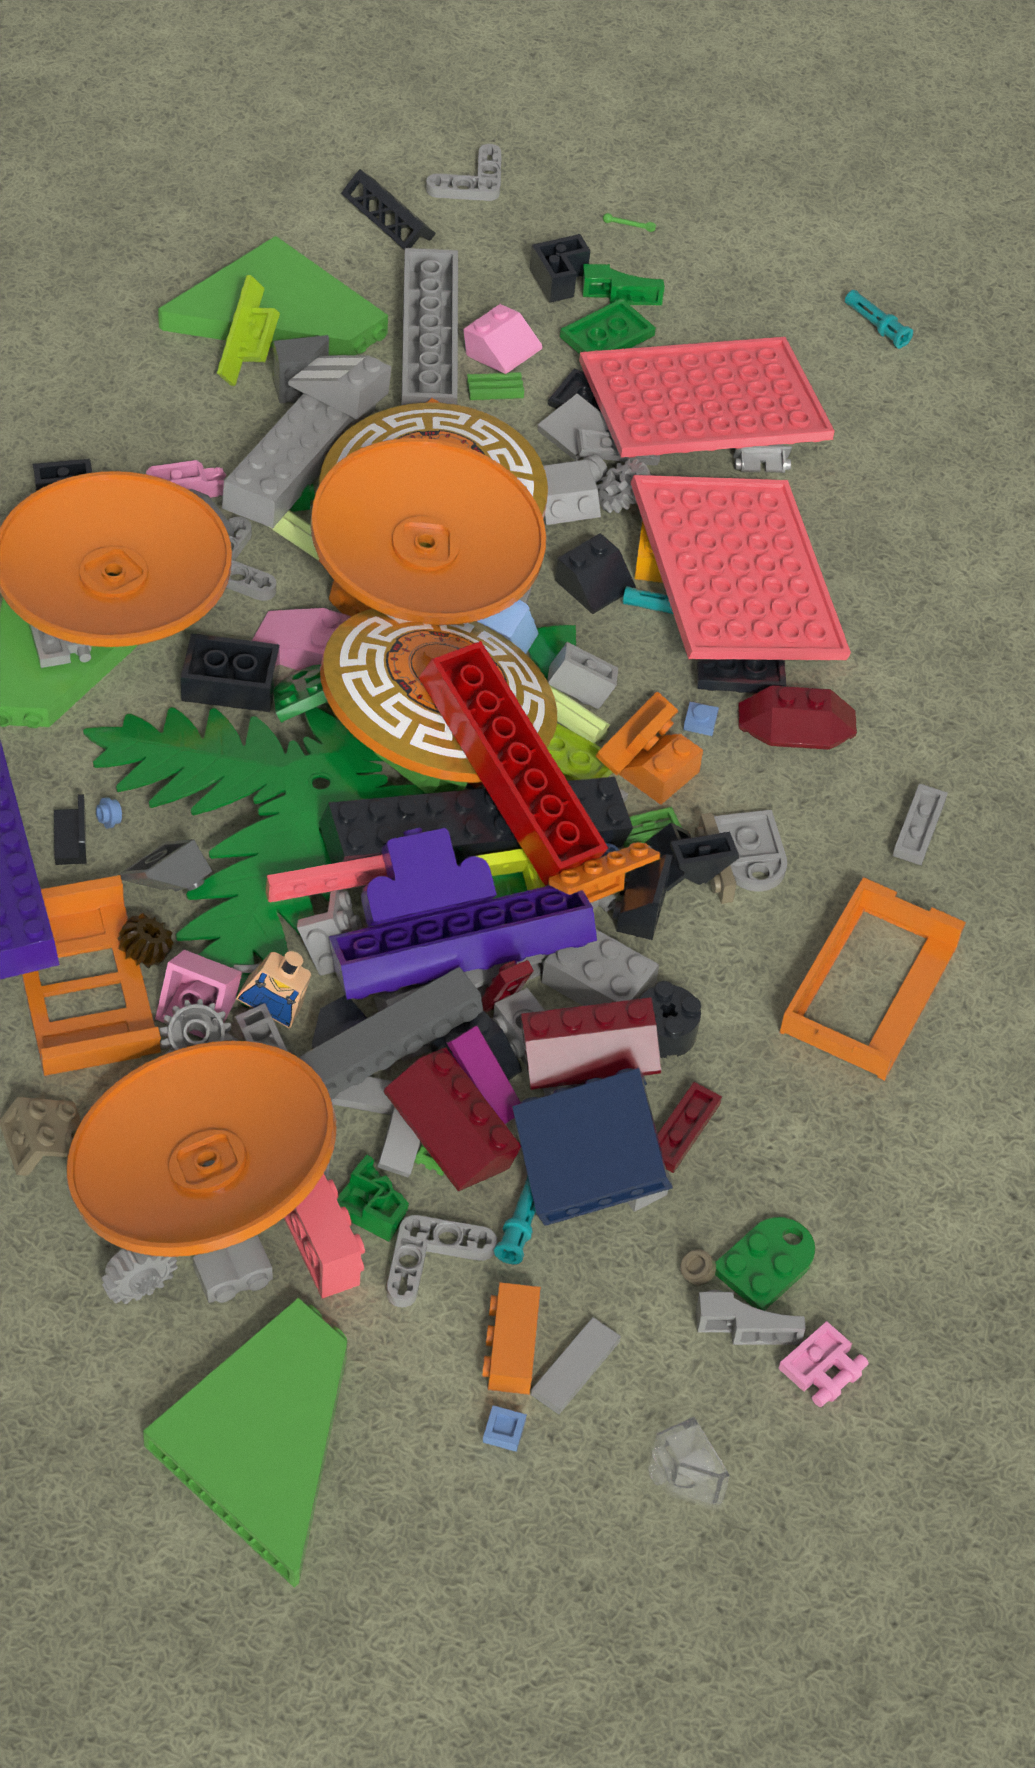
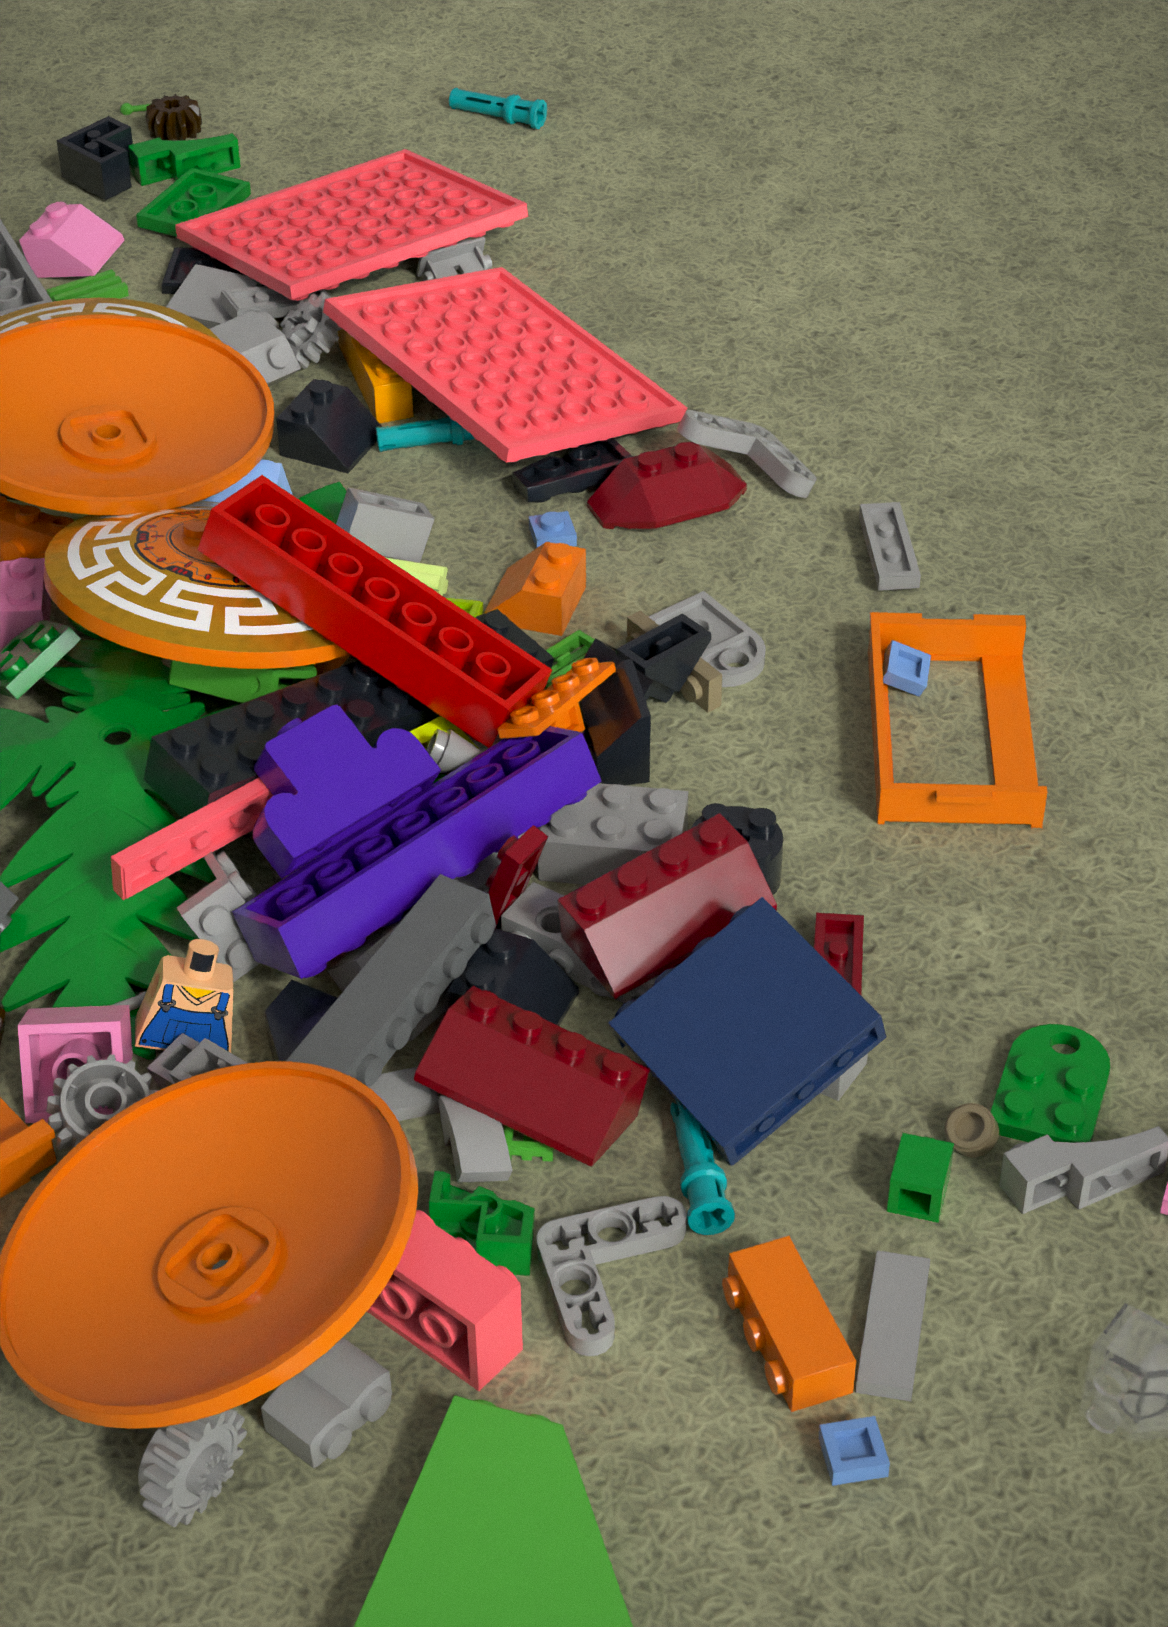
camera: 20 degrees left, 10 degrees down
(485, 1072) = (526, 986): magenta tile -> none
(518, 878) = (450, 750): none -> light grey cone
(633, 244) = (173, 118): none -> dark brown gear
(638, 733) = (493, 557): orange bracket -> none
(646, 1283) = (920, 1177): none -> green brick
(867, 926) = (906, 668): none -> medium blue plate
(873, 696) = (750, 440): none -> light grey beam

